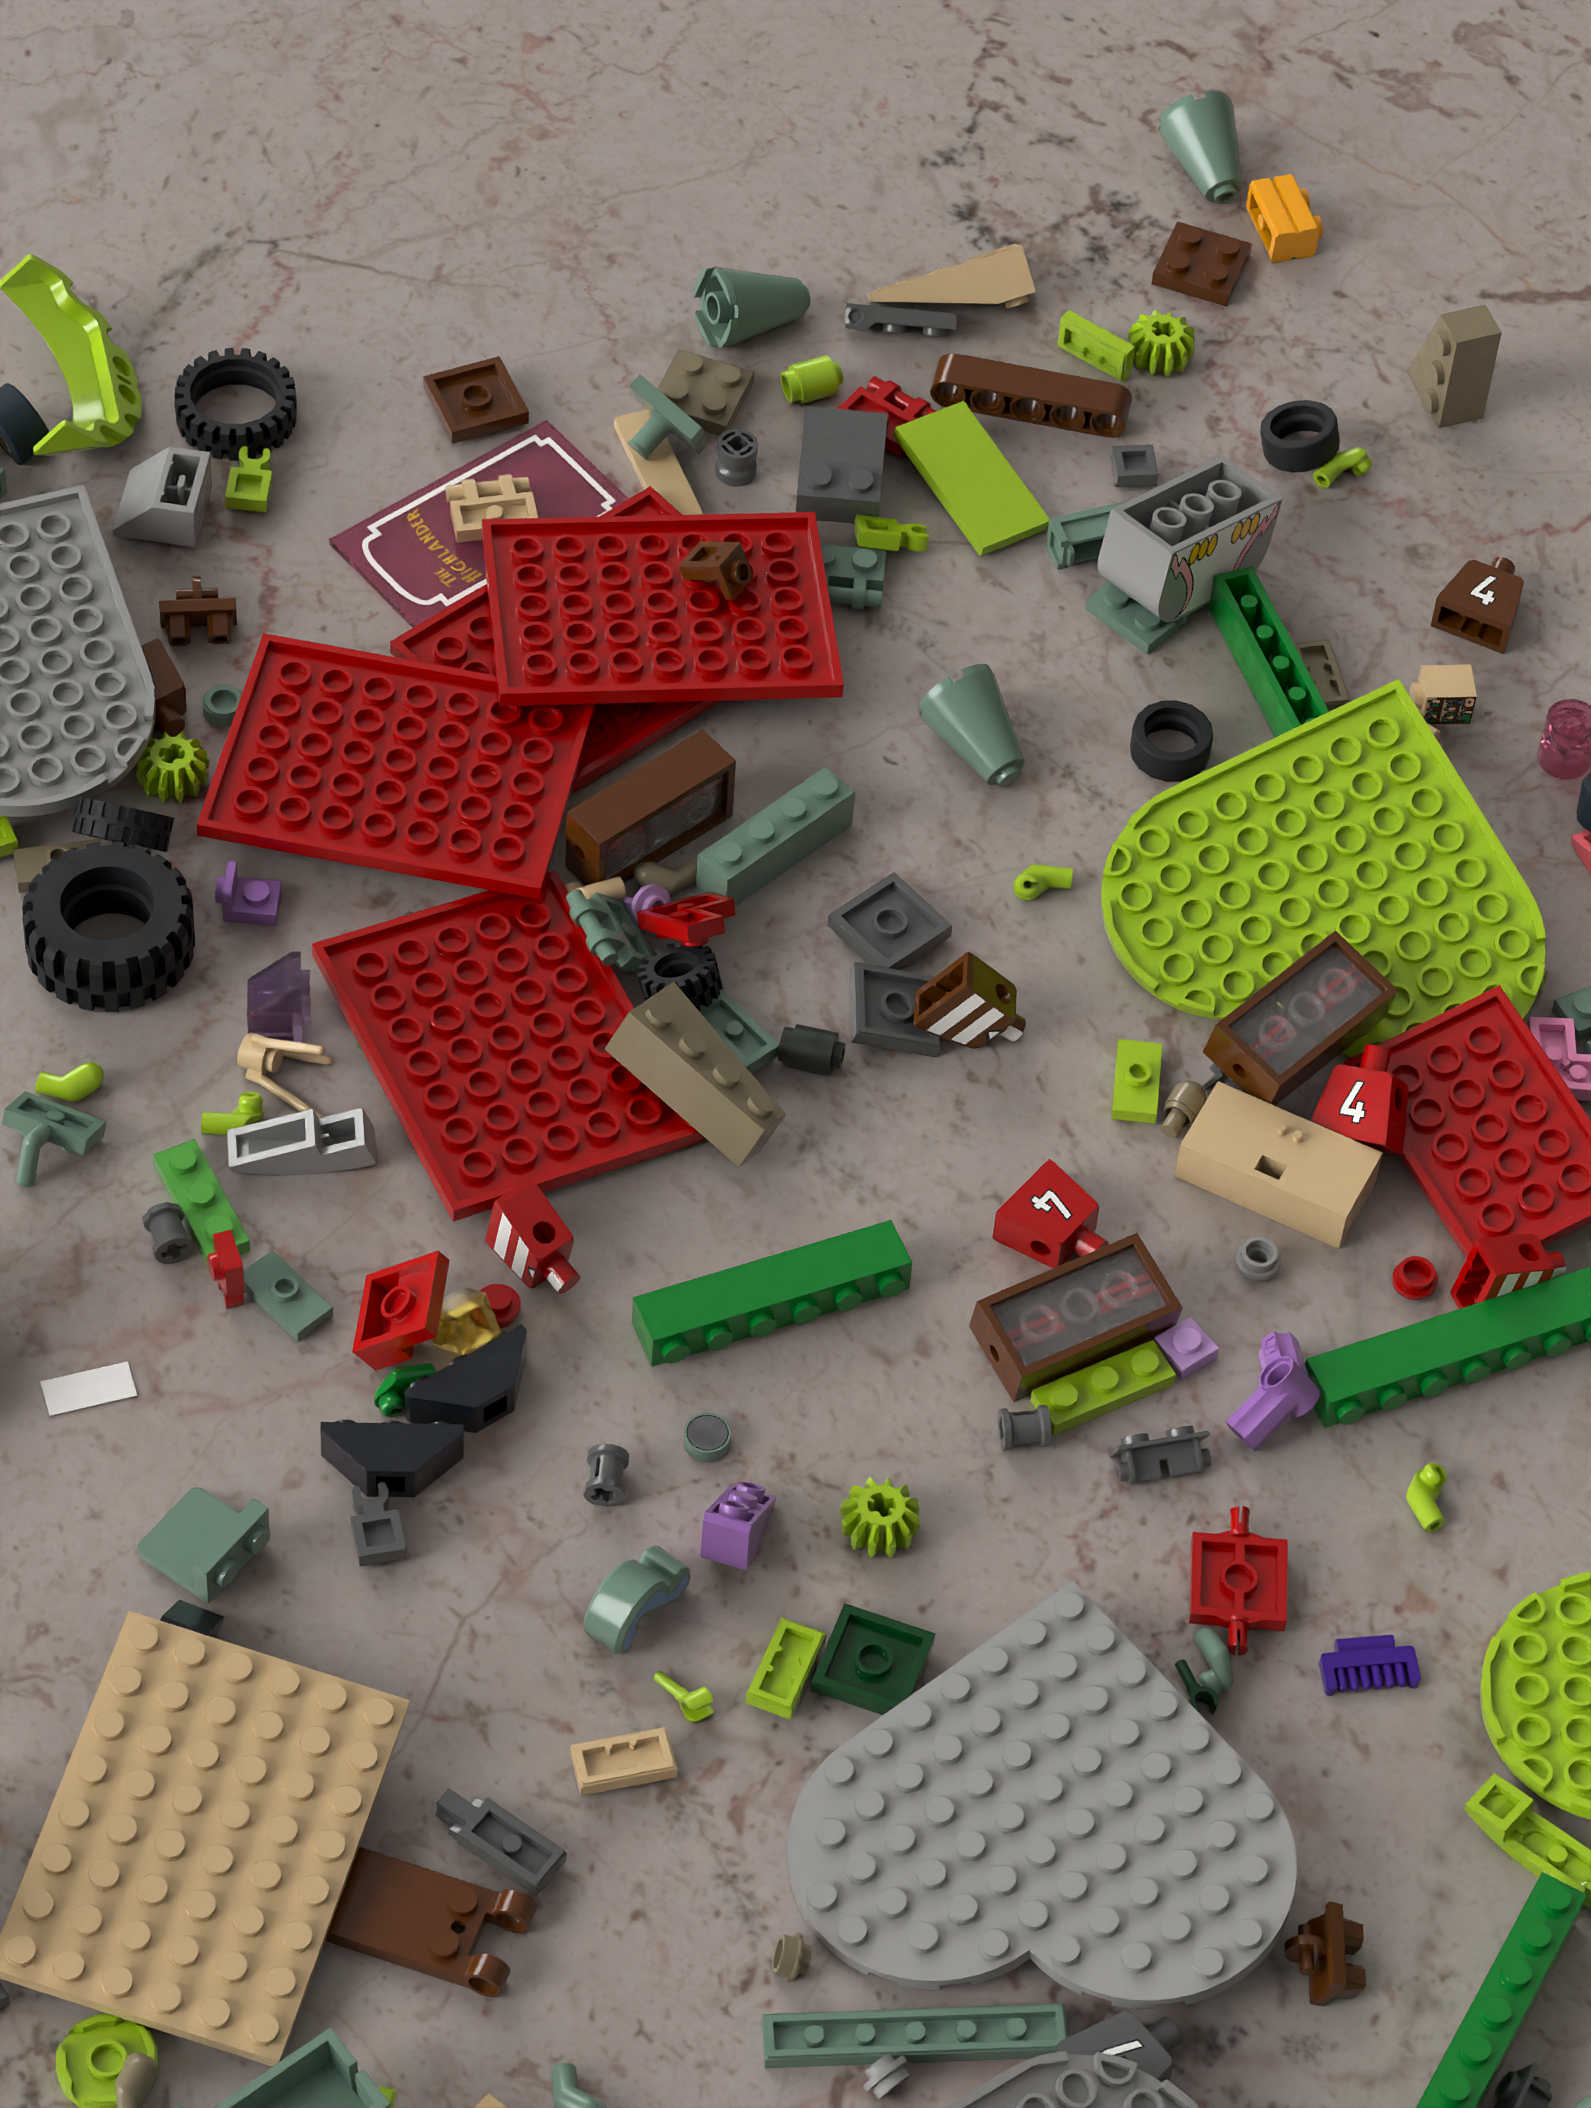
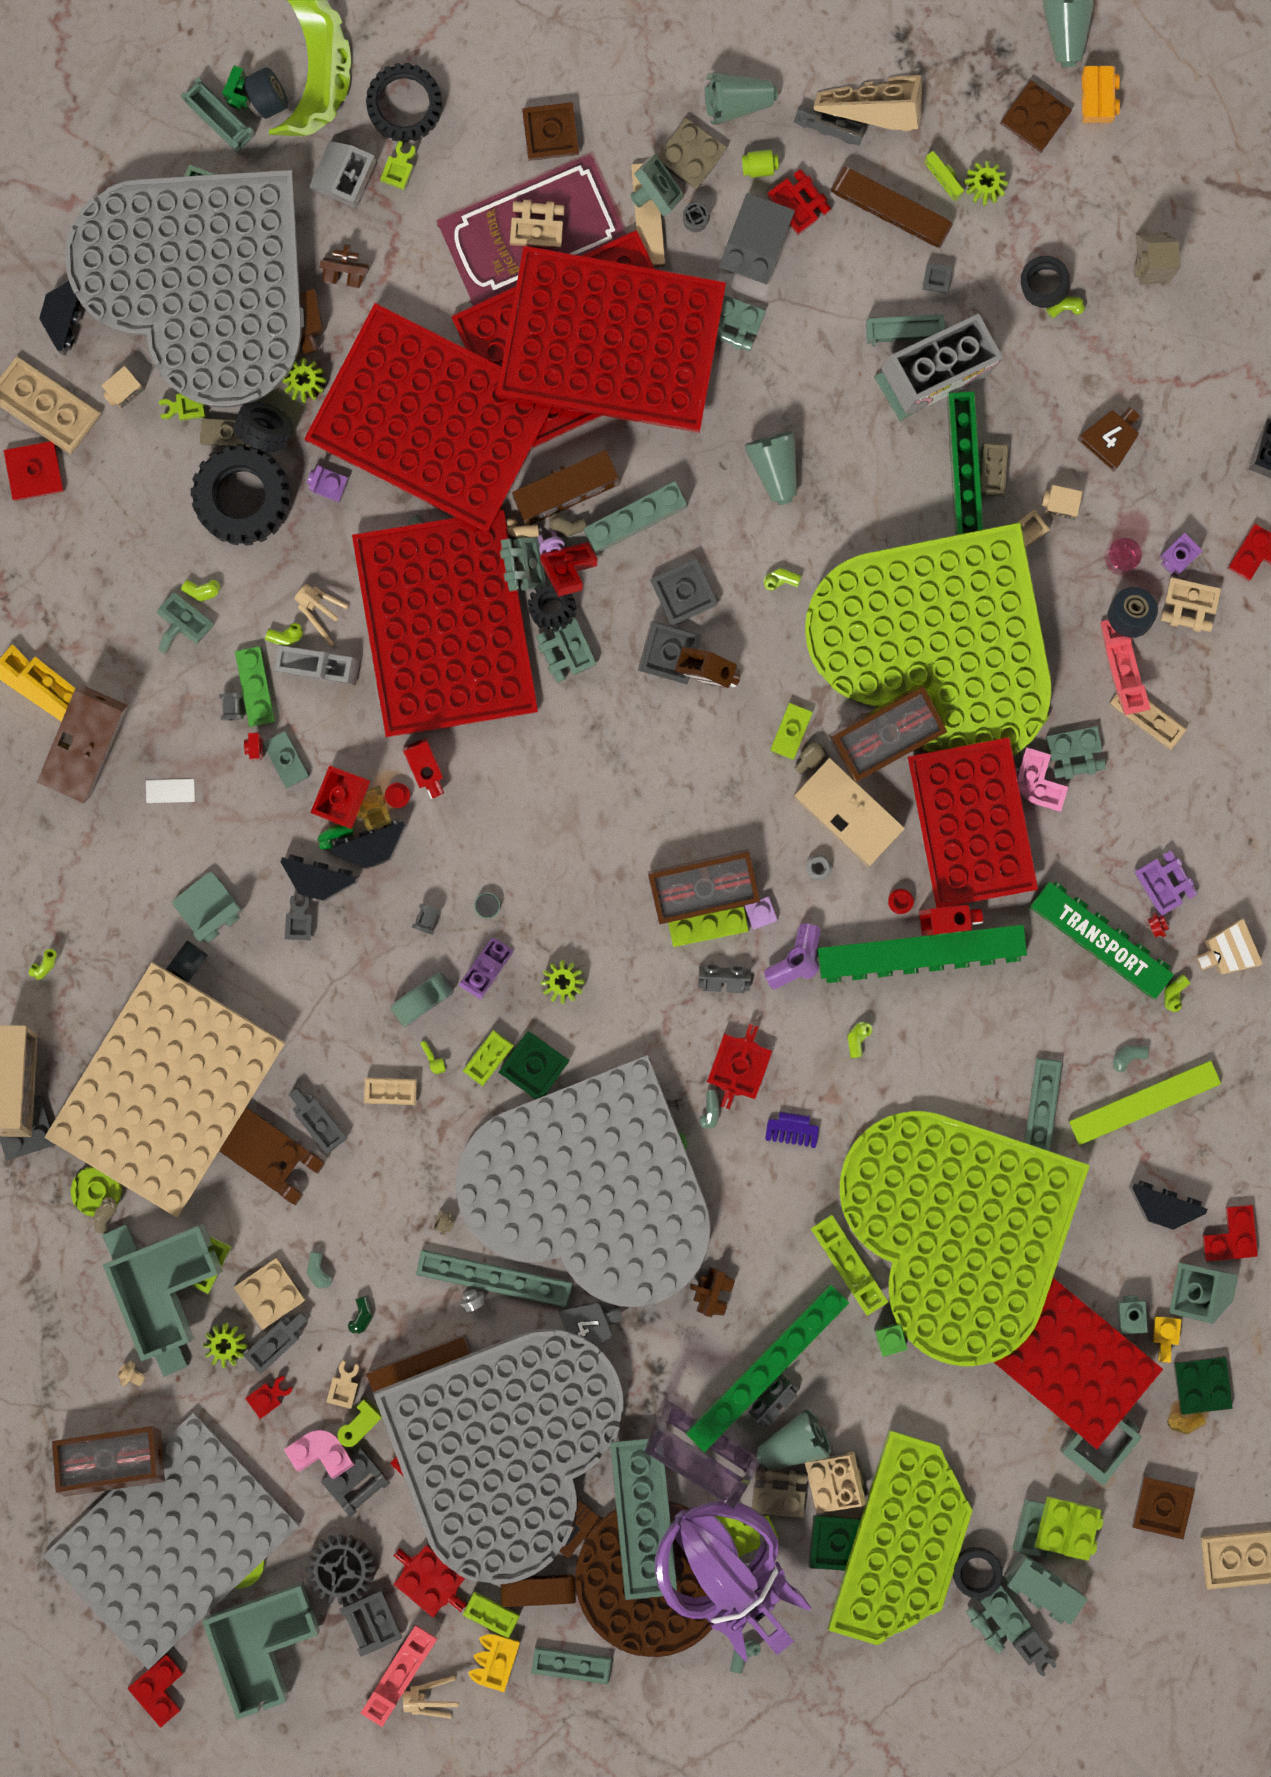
camera: 30 degrees right, 35 degrees up
(221, 704) = (344, 335): sand green tile -> none
(280, 999) = (324, 570): clear purple slope -> none
(696, 1074) = (540, 679): dark tan wedge -> none
(720, 563) = (650, 324): reddish brown bracket -> none
(771, 1293) = (545, 827): green brick -> none
(811, 1049) = (613, 669): pearl dark grey brick -> none
(889, 535) = (766, 298): lime plate -> none
(971, 478) = (833, 267): lime tile -> none
(1024, 1427) = (656, 945): dark grey bush -> none
(1049, 1218) = (712, 817): red torso -> none
(1178, 717) = (899, 480): black tyre -> none
(1194, 1690) = (696, 1122): dark green hand -> none
(1366, 1103) = (906, 794): red torso -> none

